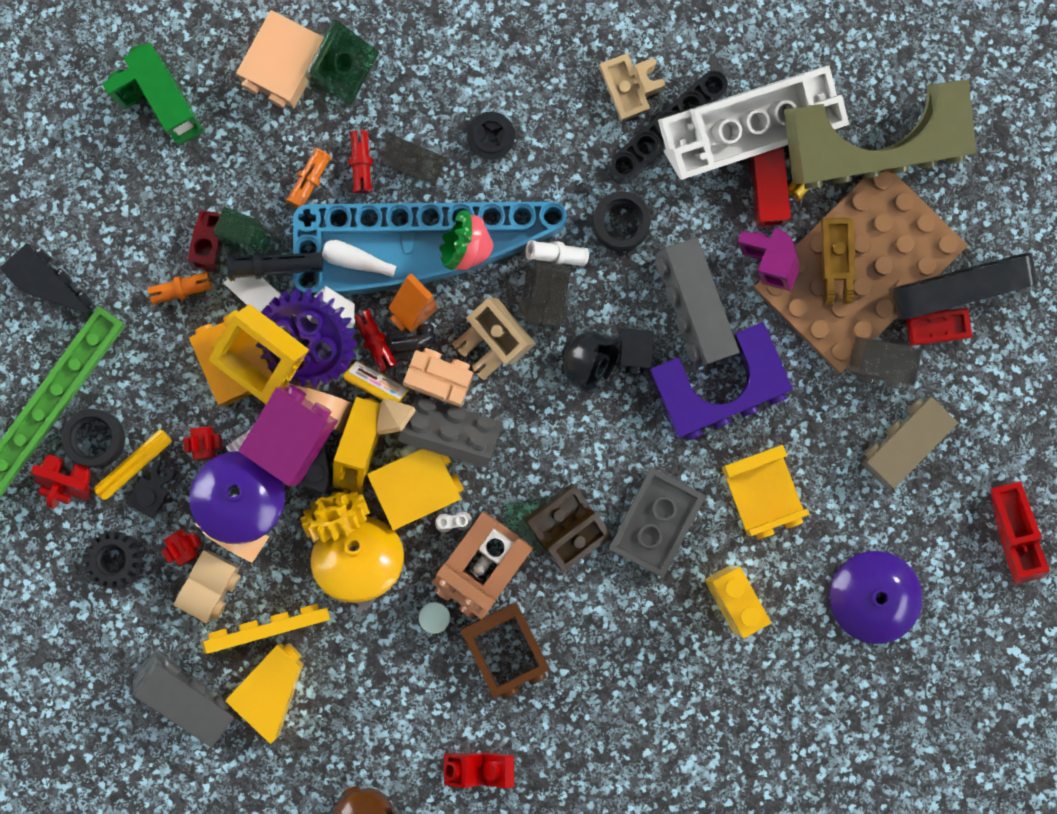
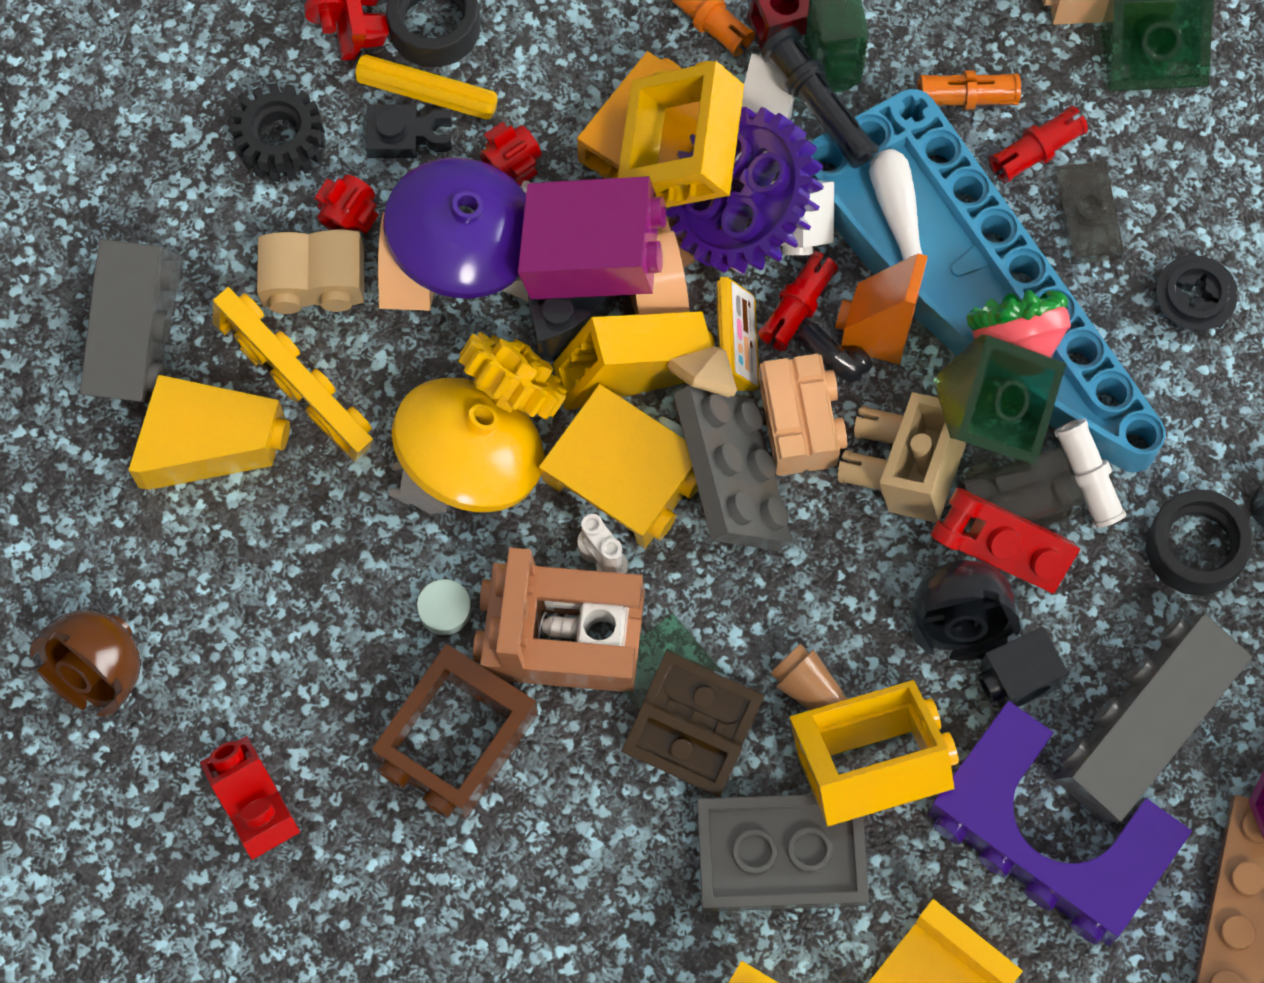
camera: 65 degrees right, 15 degrees down
(500, 279) = (1000, 397): none -> clear green slope
(569, 319) = (1006, 541): none -> red plate
(580, 458) = (807, 679): none -> medium nougat cone
(616, 443) = (867, 721): none -> yellow window

